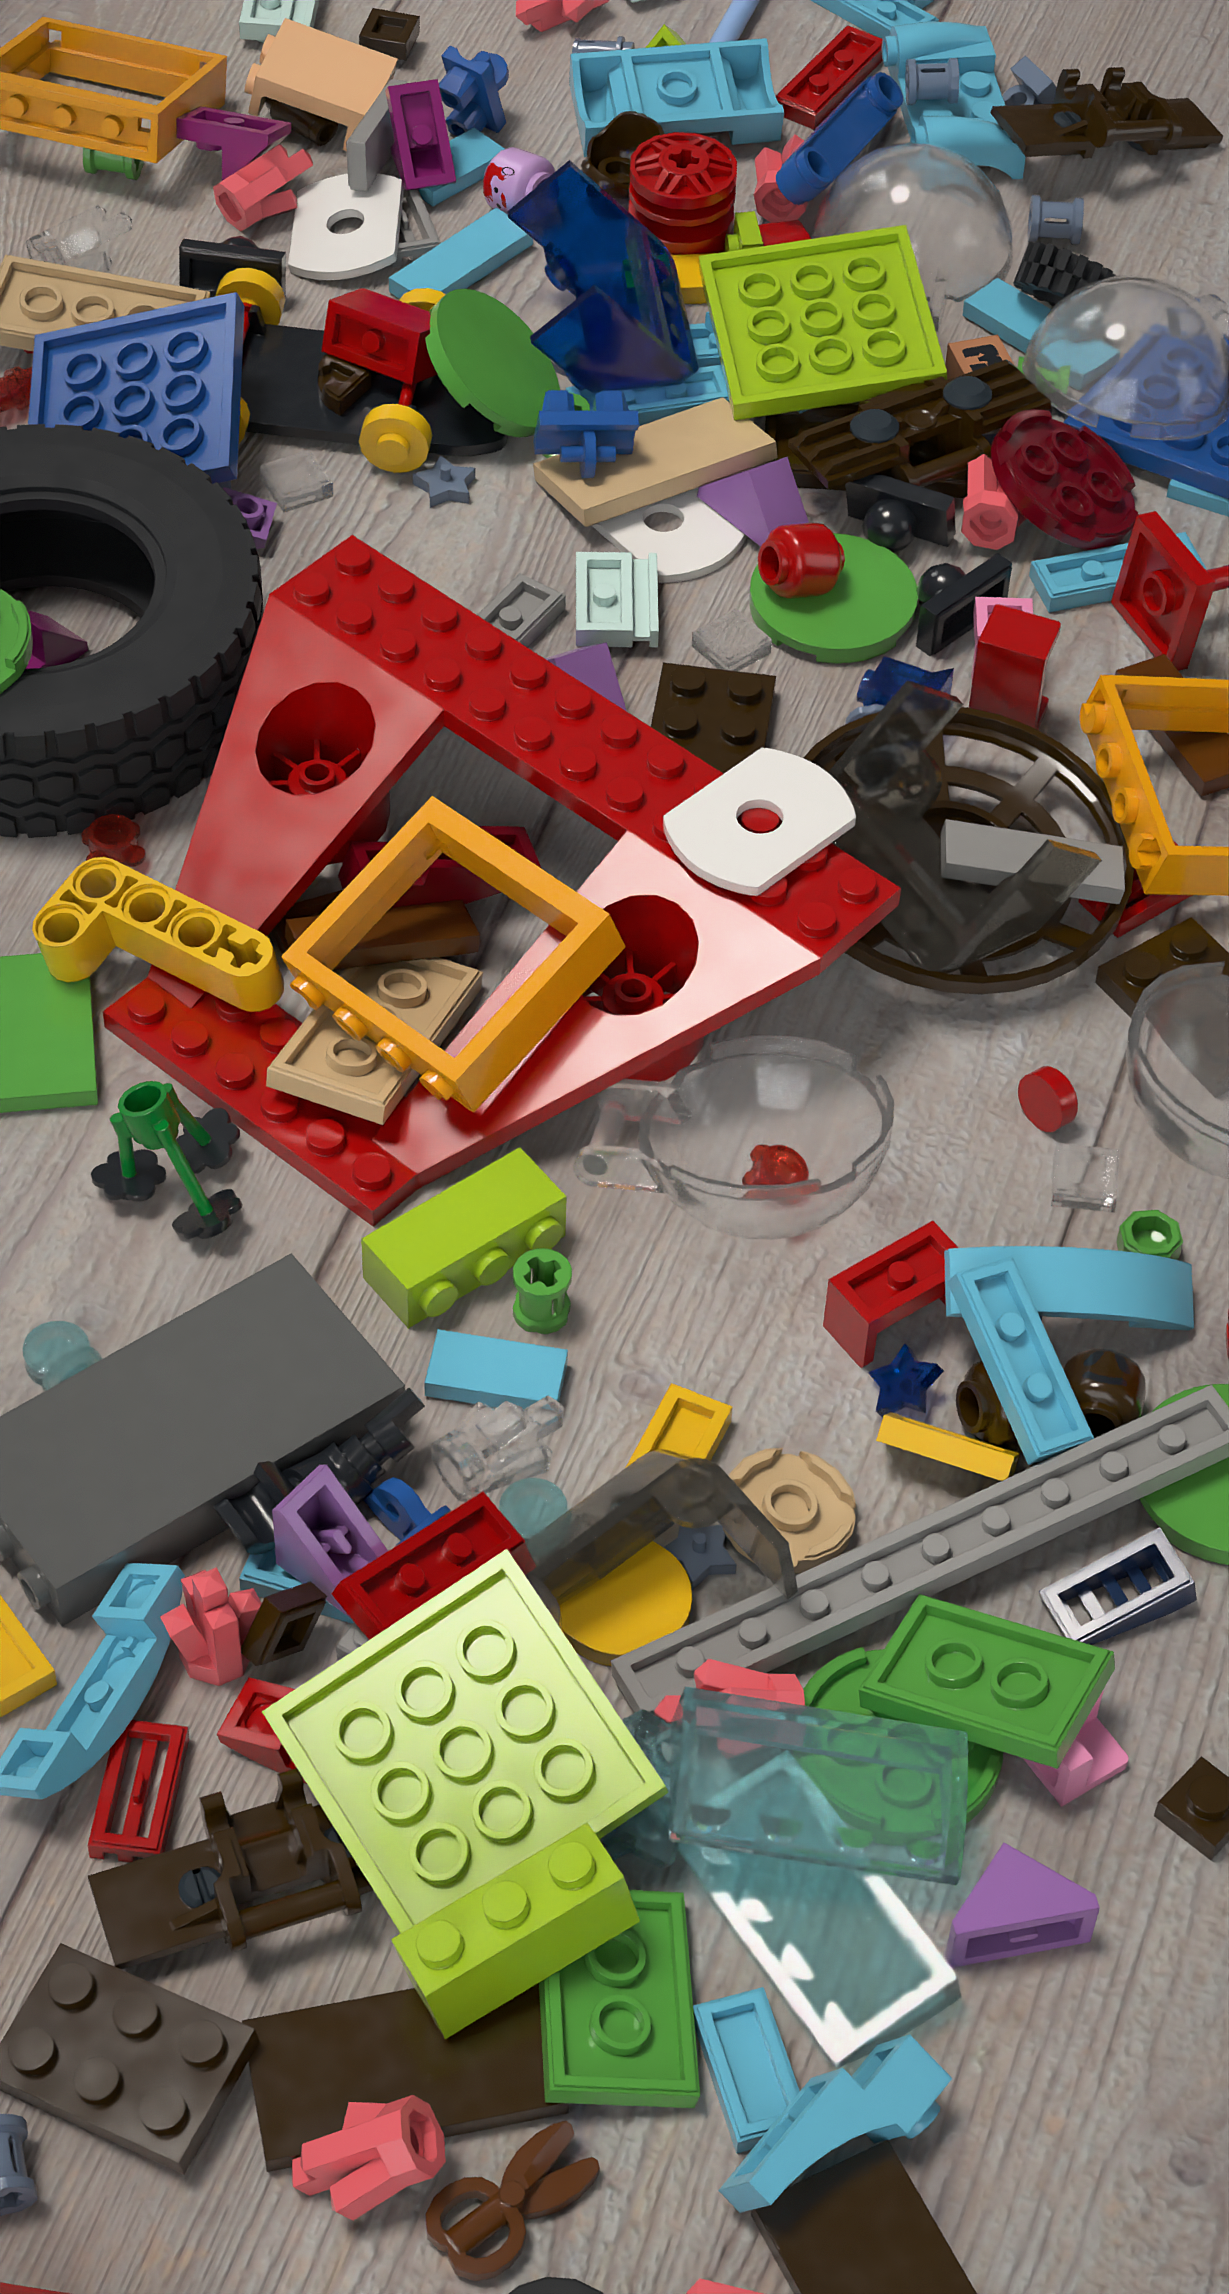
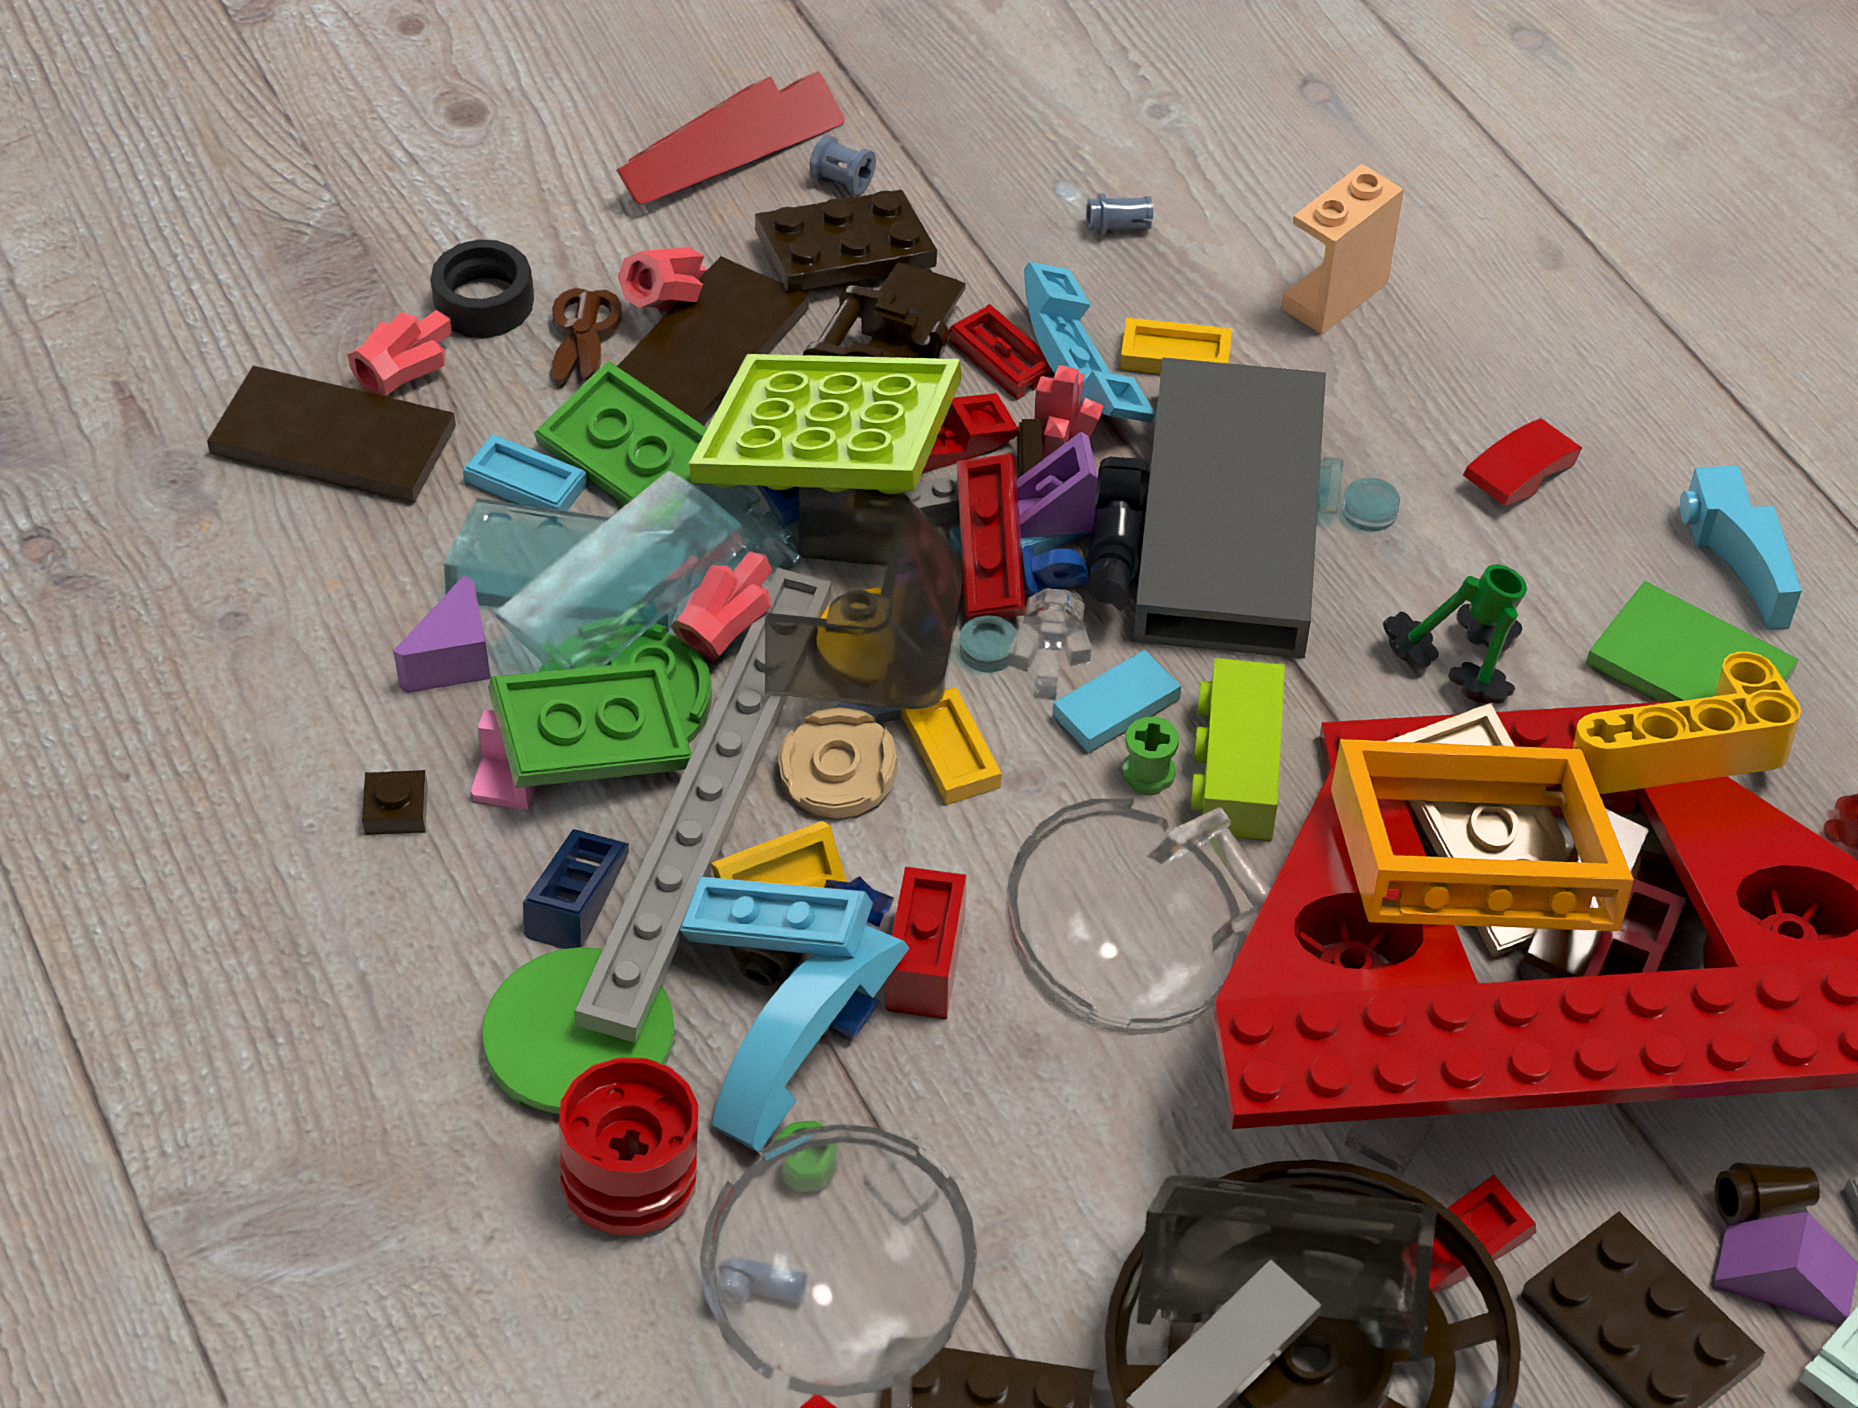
camera: 135 degrees right, 0 degrees up
(516, 1930) = (698, 381): lime brick -> none
(719, 850) = (1380, 1106): white piece -> none
(775, 1166) = (1087, 929): clear red plate -> none
(884, 2099) = (441, 463): medium azure slope -> none
(1048, 1098) = (999, 1202): red tile -> none
(1107, 1388) = (715, 990): dark brown head -> none

